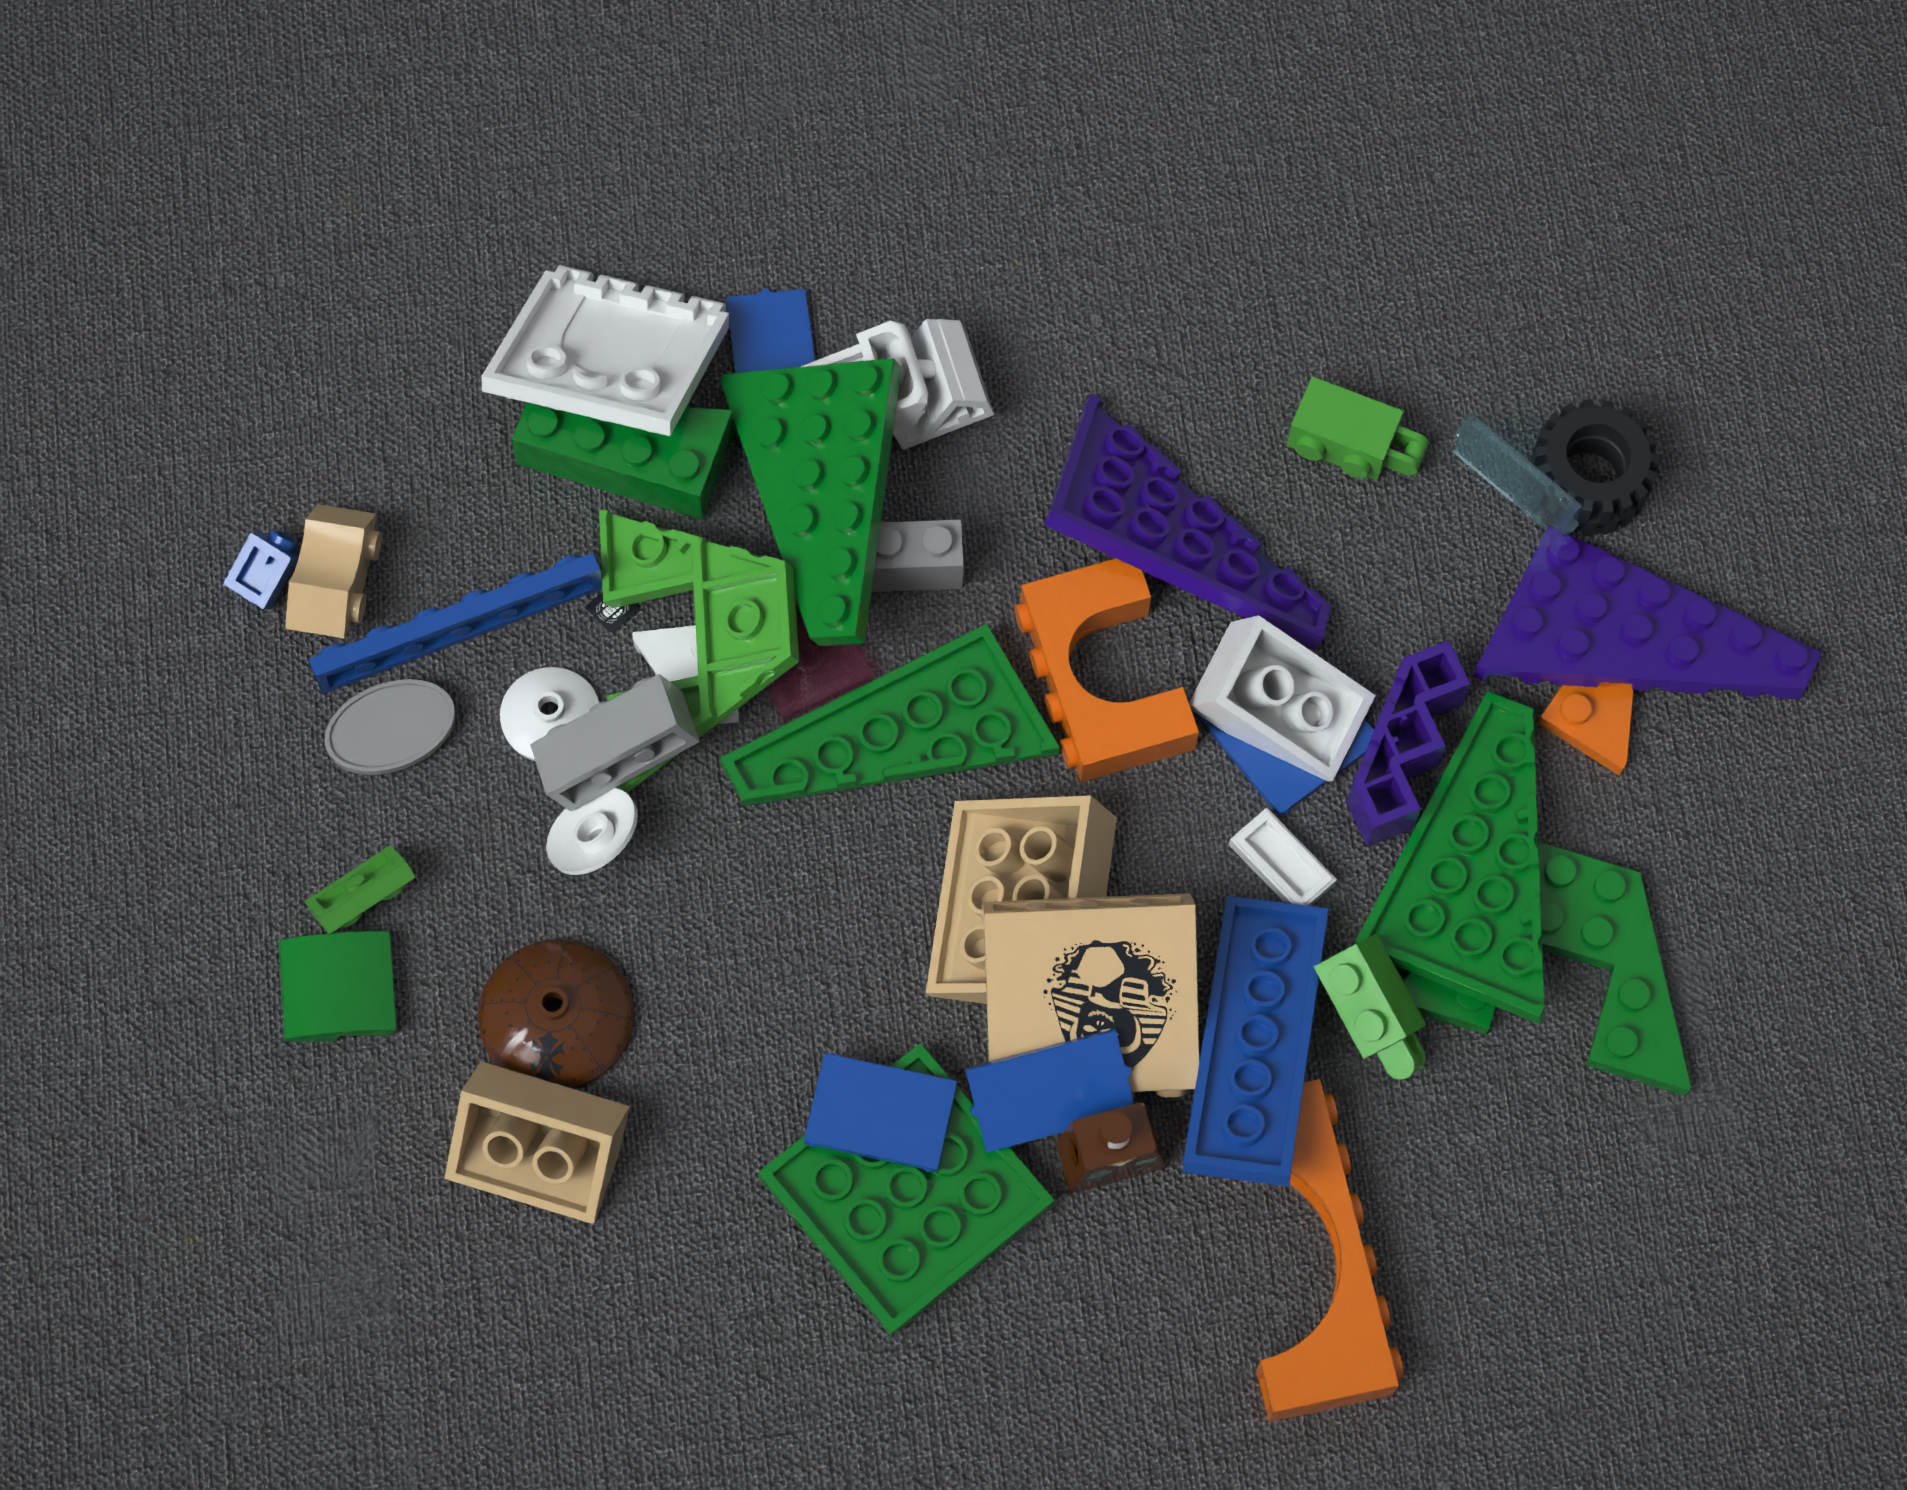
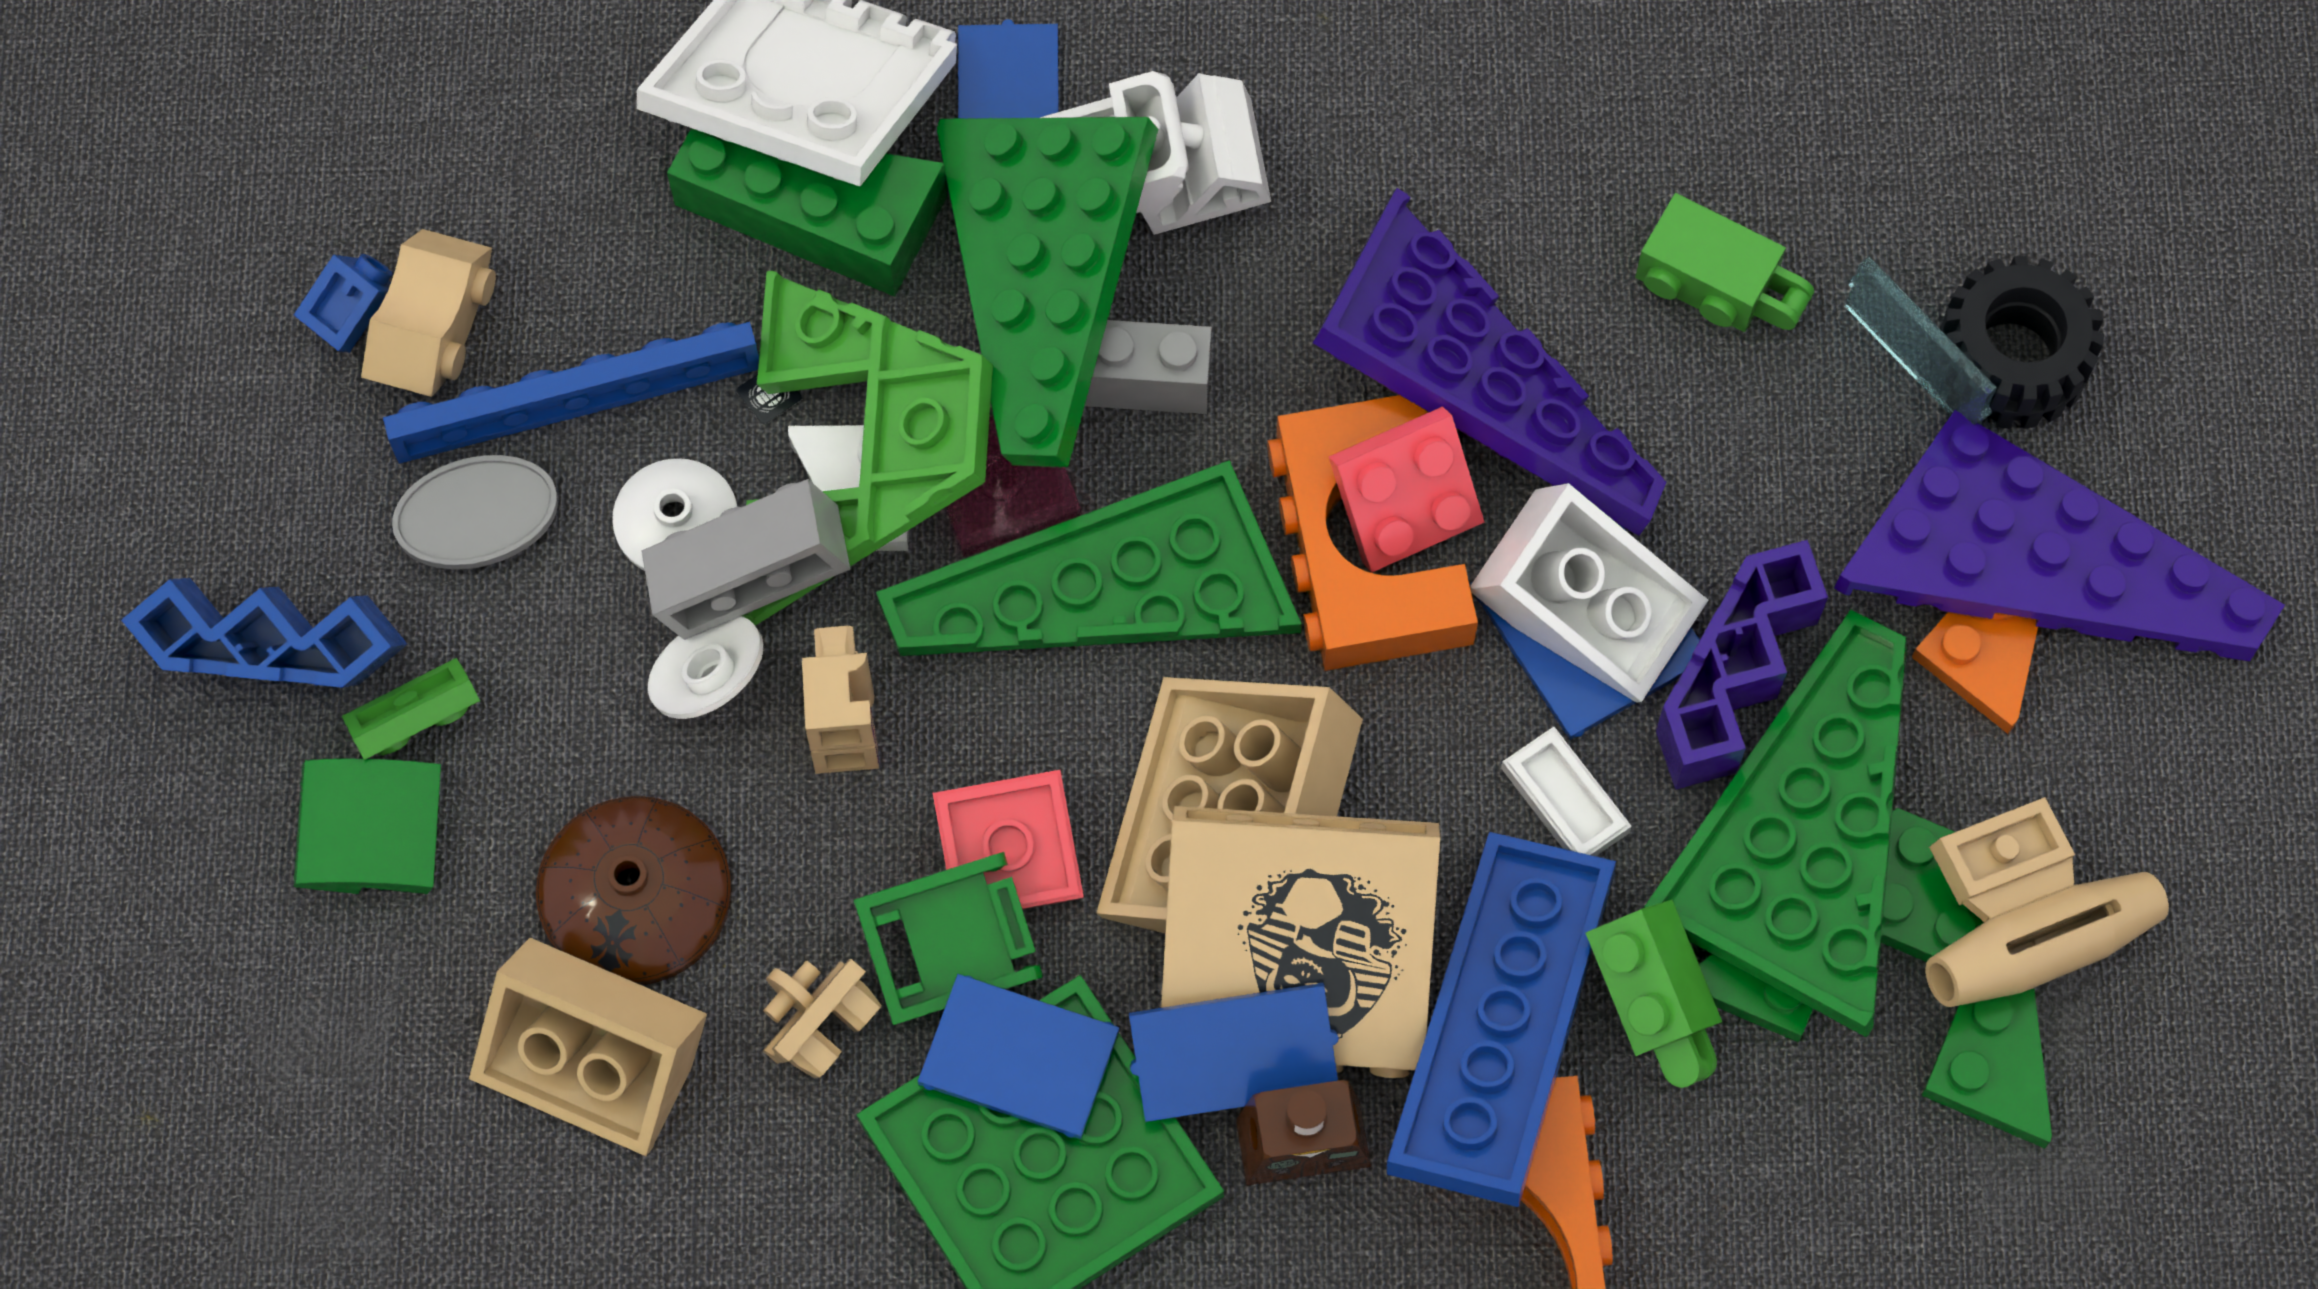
camera: 10 degrees right, 0 degrees up
(234, 845) = (263, 637): none -> blue brick
(704, 849) = (839, 704): none -> tan hips
(730, 1079) = (838, 993): none -> tan hips
(815, 1018) = (952, 929): none -> green container
(850, 947) = (1026, 822): none -> coral plate
(1130, 632) = (1406, 489): none -> coral plate
(1660, 919) = (2035, 920): none -> tan plate

